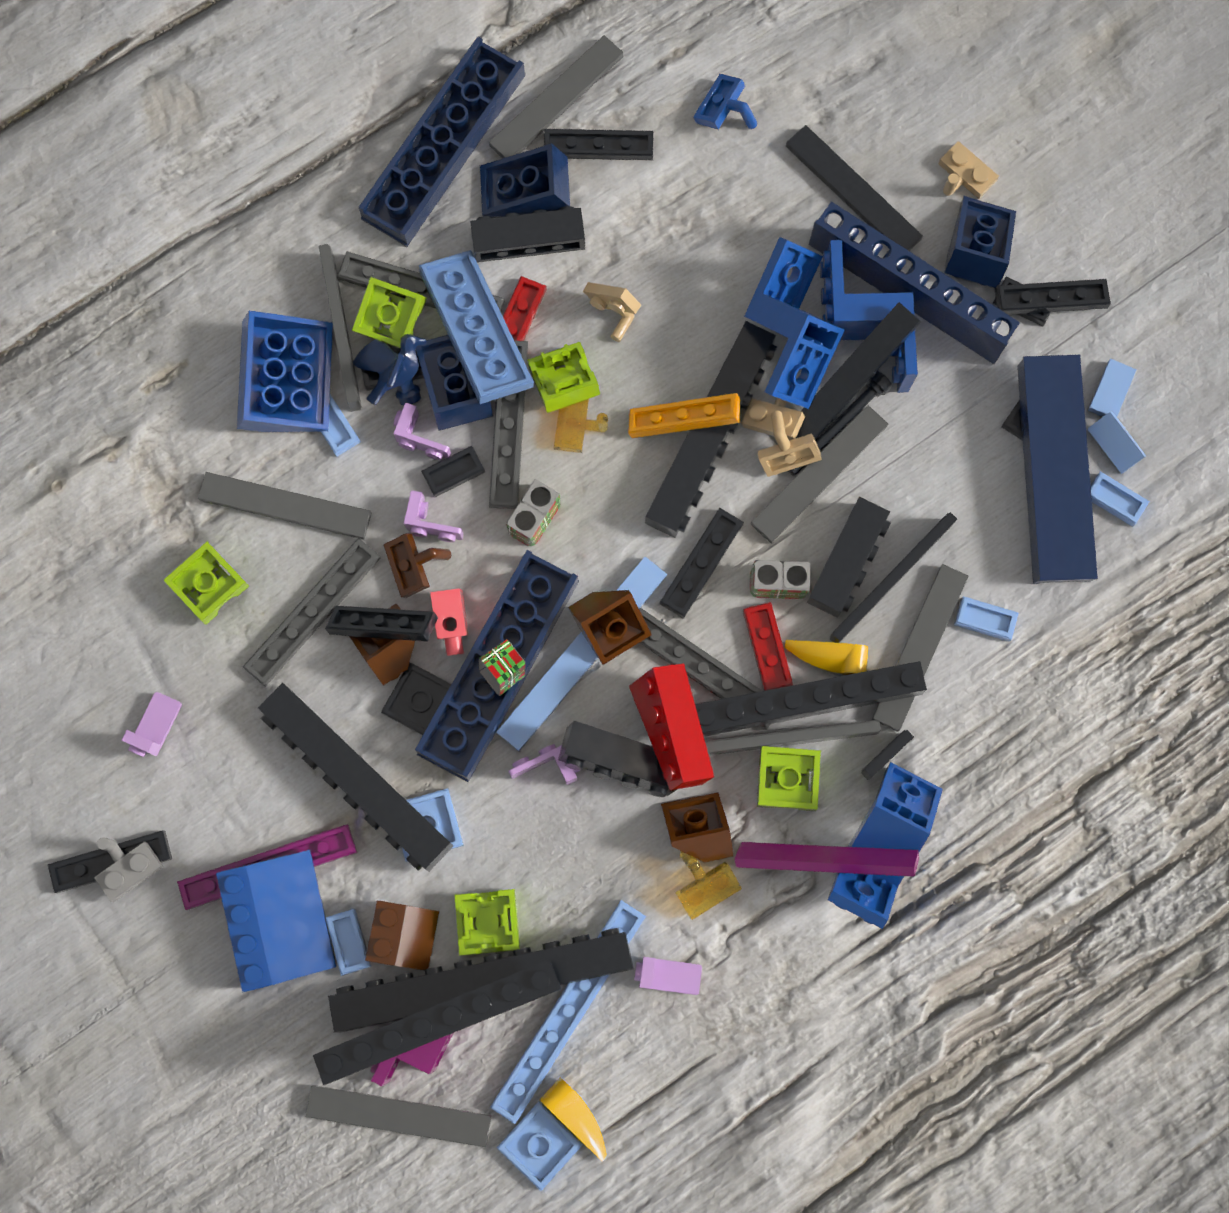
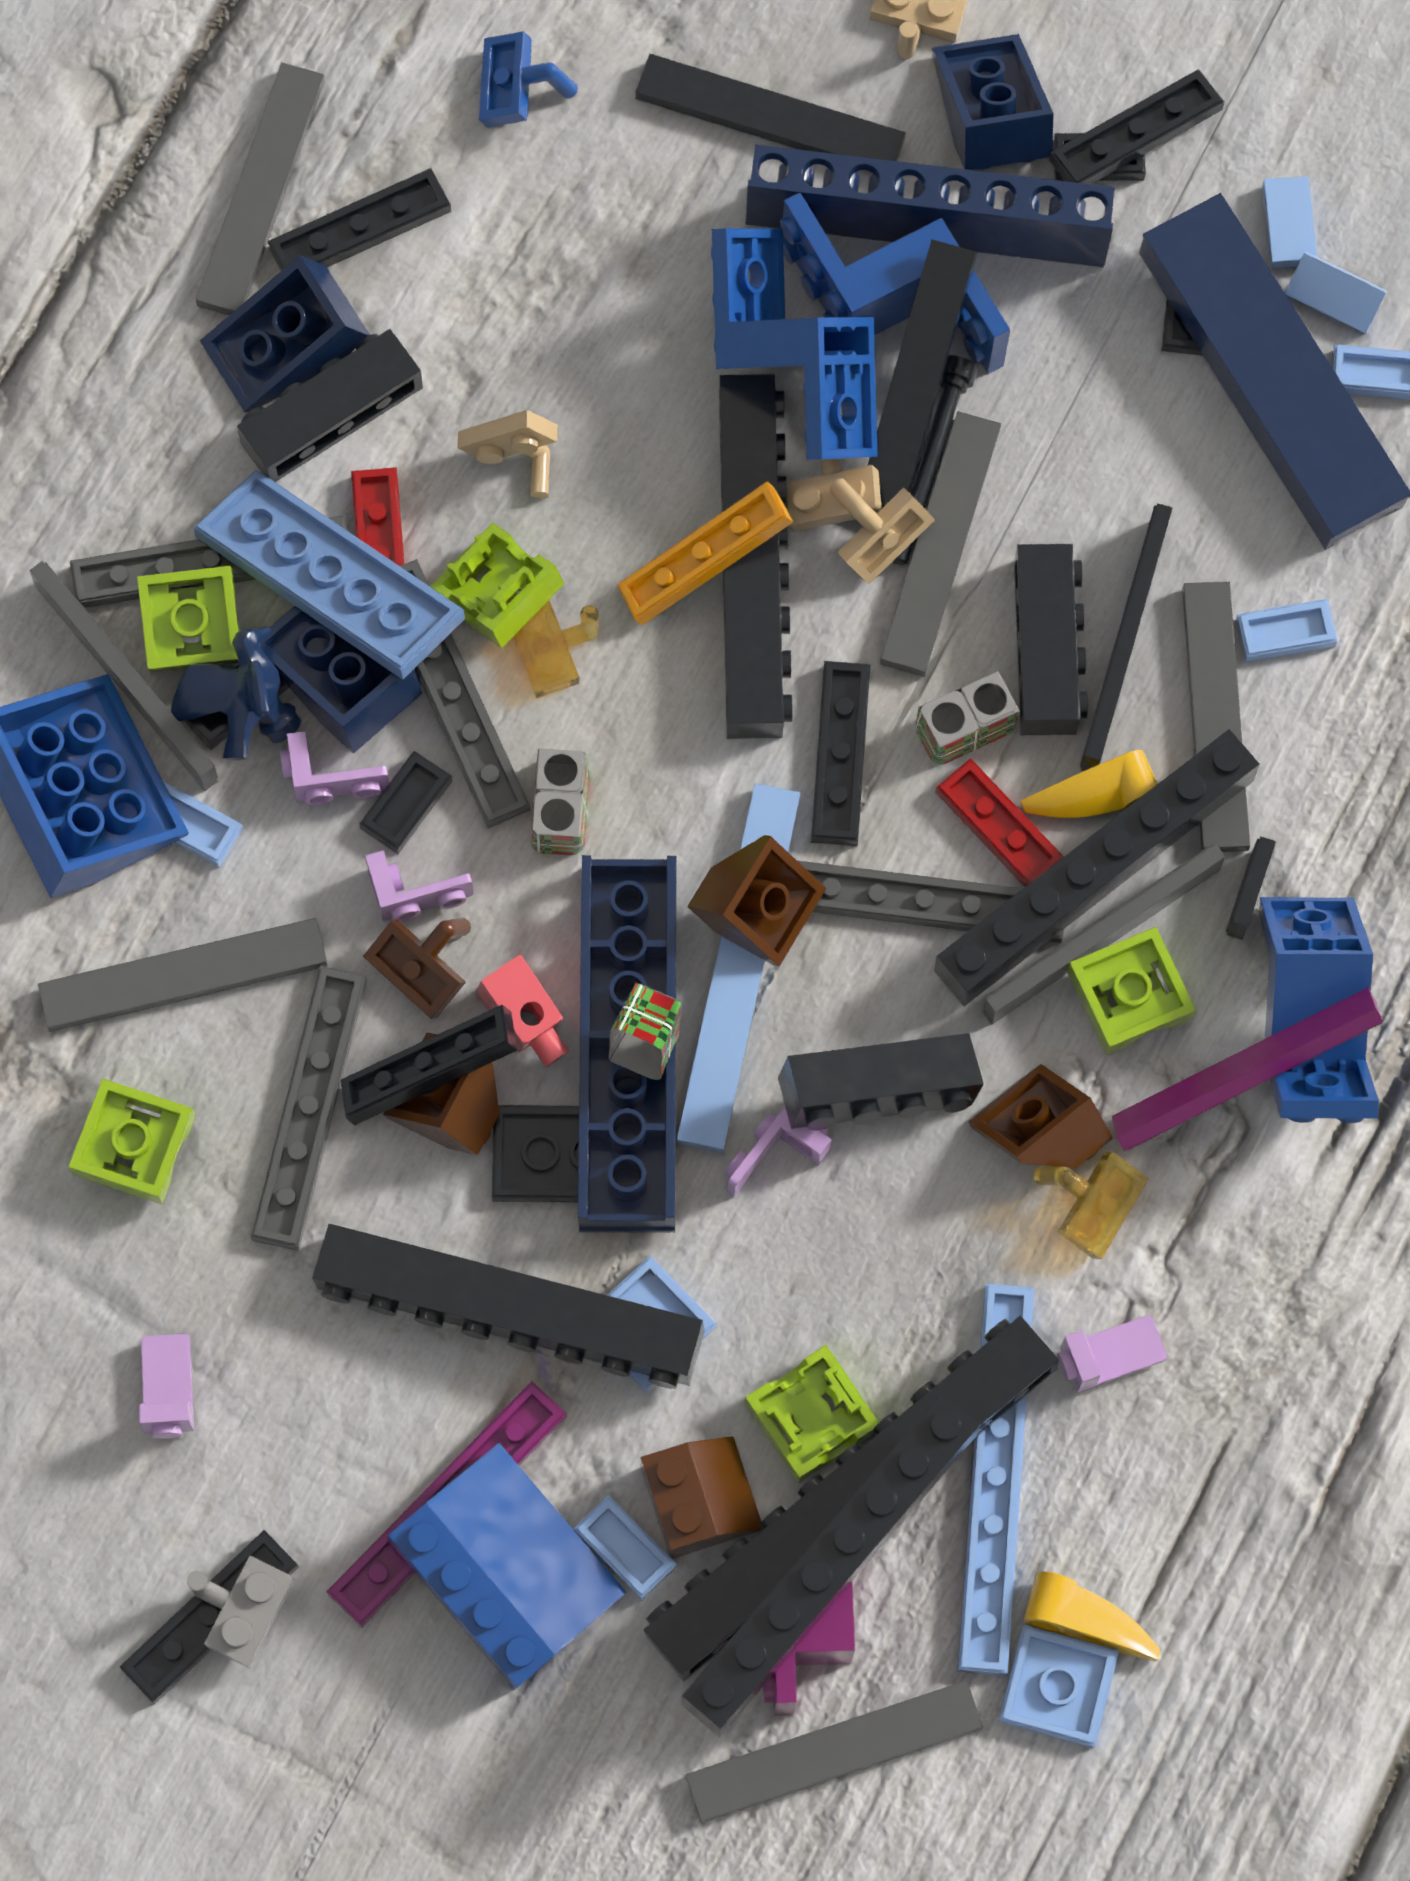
camera: 30 degrees left, 5 degrees down
(441, 142) = (125, 334): dark blue tile -> none
(673, 725) = (930, 992): red wedge -> none

